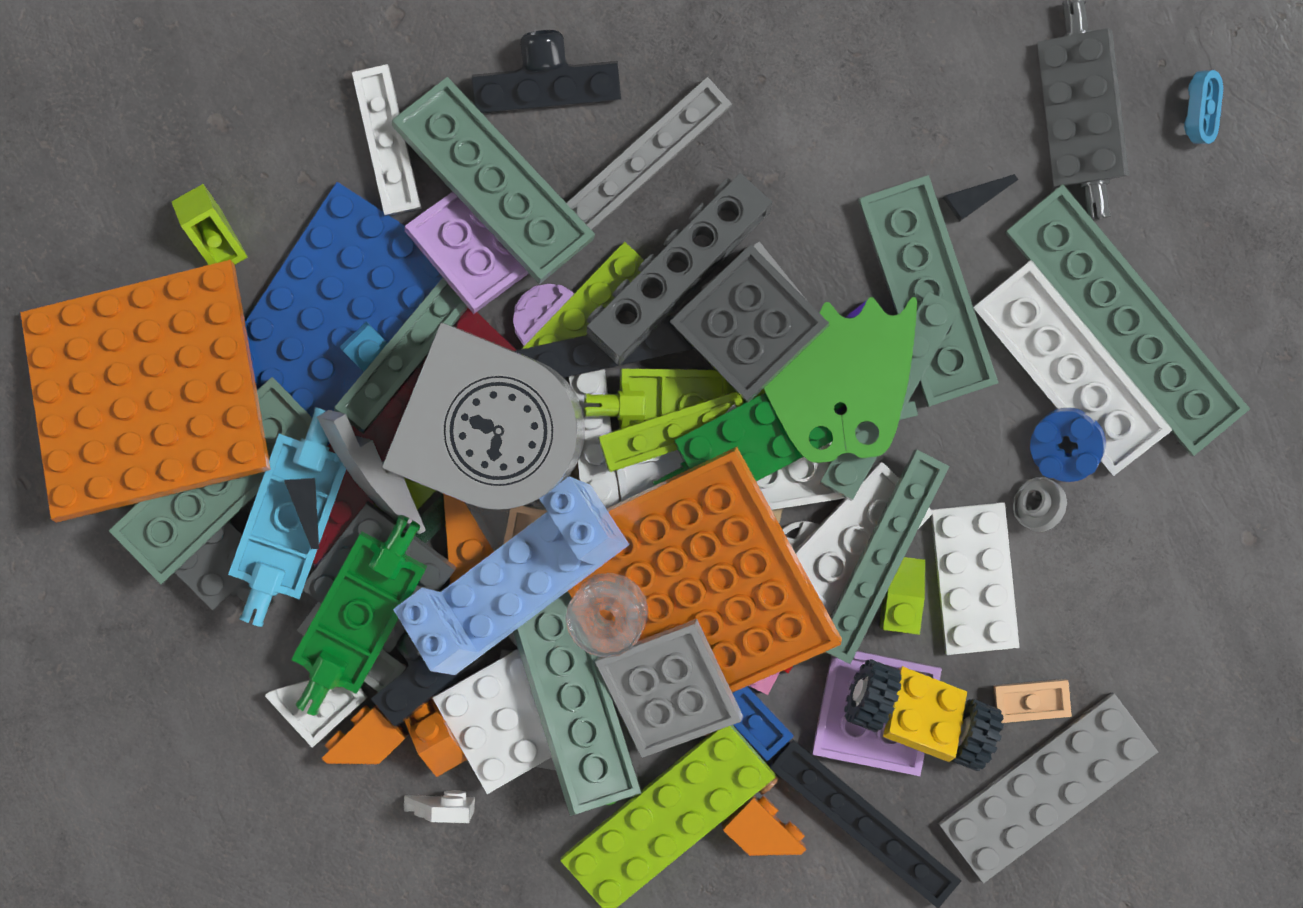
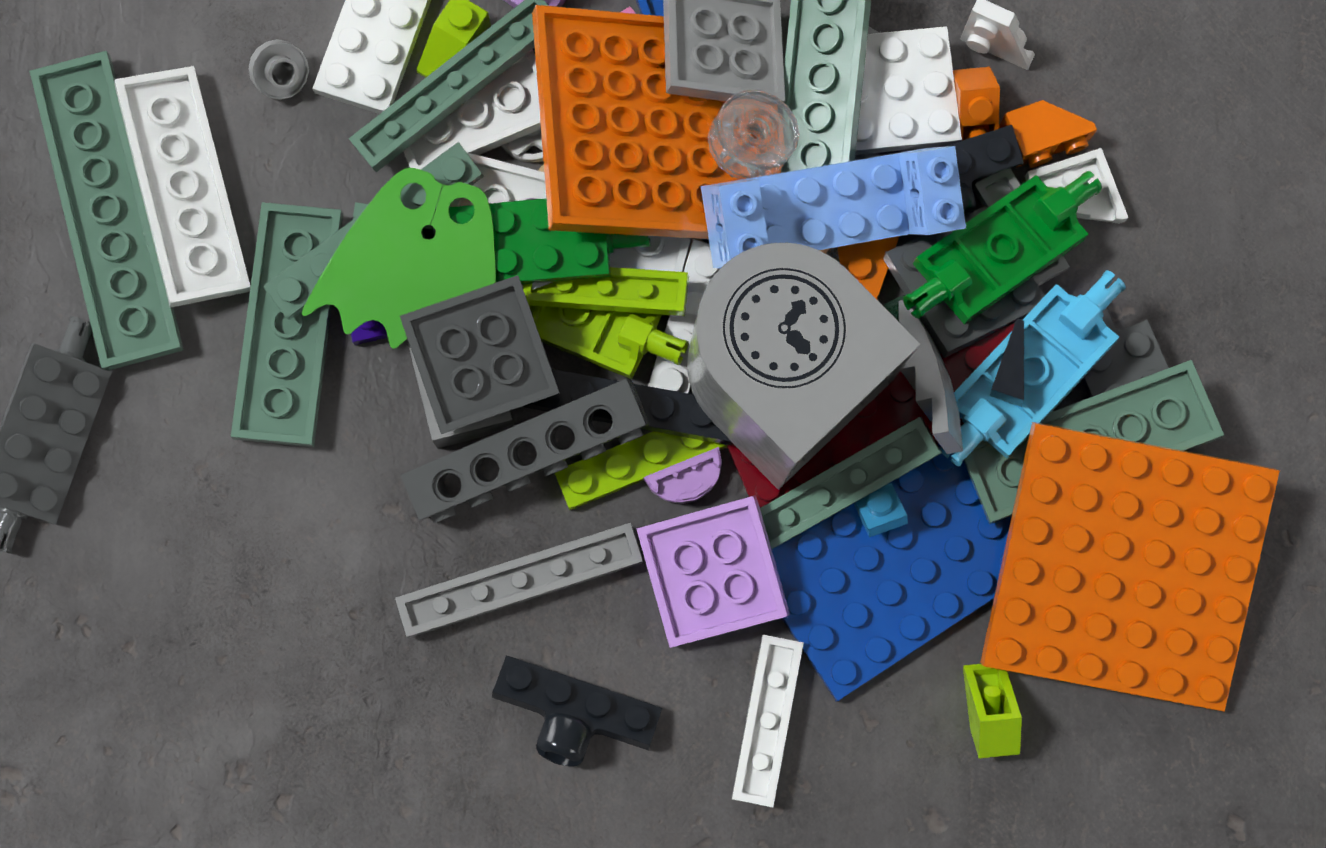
camera: 165 degrees left, 10 degrees down
(493, 180) = (675, 626): sand green plate -> none
(968, 200) = (199, 395): black piece -> none
(1081, 429) = (226, 92): blue plate -> none

